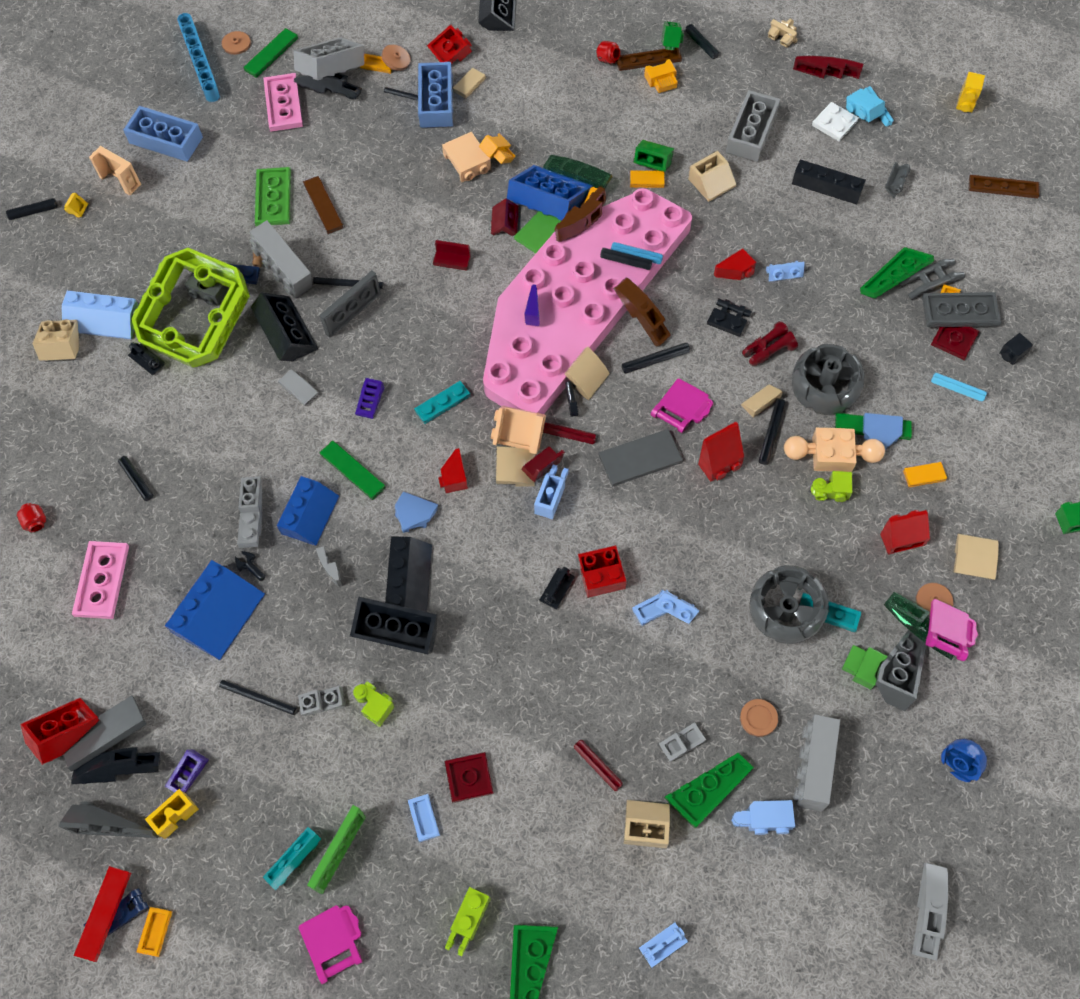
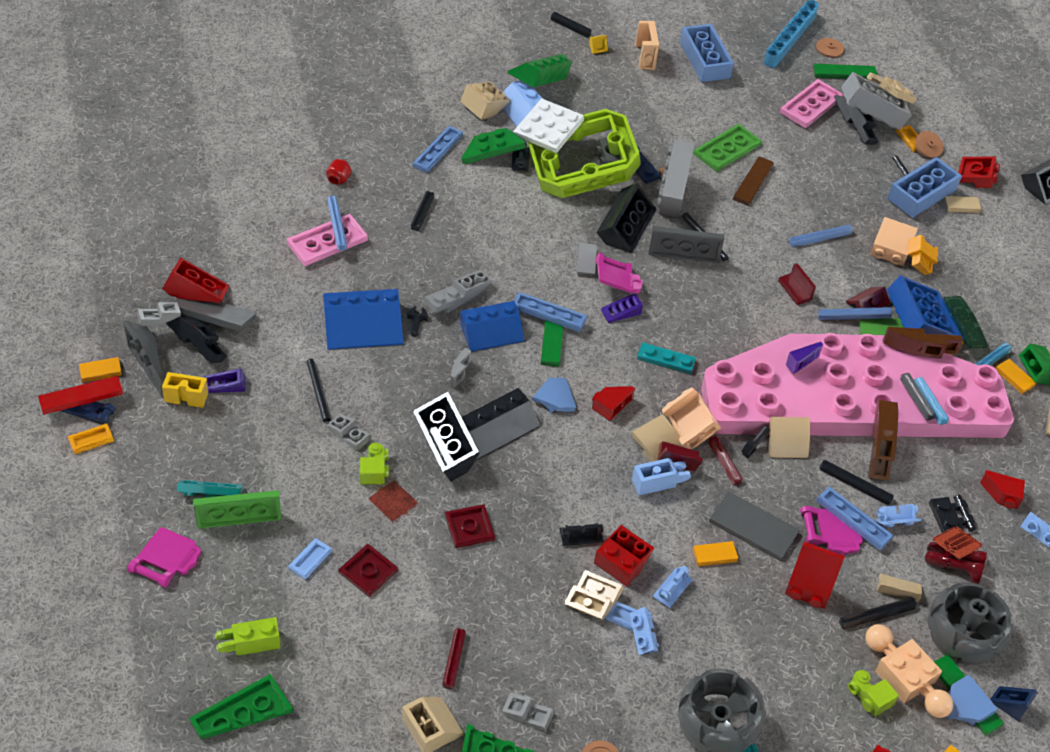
camera: 45 degrees right, 15 degrees down
(69, 272) = (543, 70): none -> green slope
(73, 782) = (165, 312): none -> light grey slope
(76, 417) = (437, 149): none -> medium blue tile
(82, 875) = (100, 369): none -> light orange tile
(92, 559) = (337, 223): none -> medium blue axle
(114, 371) = (492, 144): none -> green wing
(139, 312) = (549, 125): none -> white plate
(326, 34) = (893, 87): none -> tan wing
(329, 455) = (550, 312): none -> medium blue tile
(338, 380) = (617, 274): none -> dark pink piece
(416, 711) = (393, 500): none -> clear red piece
(417, 201) = (820, 235): none -> medium blue axle
(486, 667) = (469, 526): none -> dark red tile
(512, 236) = (854, 313): none -> medium blue axle
(619, 619) = (594, 595): none -> slope
(620, 179) = (995, 355): none -> dark azure axle
(644, 503) = (715, 553): none -> light orange tile
(651, 555) = (673, 586): none -> light blue hinge
(686, 384) = (854, 518): none -> medium blue tile
(704, 359) = (890, 517): none -> light blue hinge
(759, 333) = (957, 542): none -> clear red piece
(901, 400) = (1013, 700): none -> dark blue slope

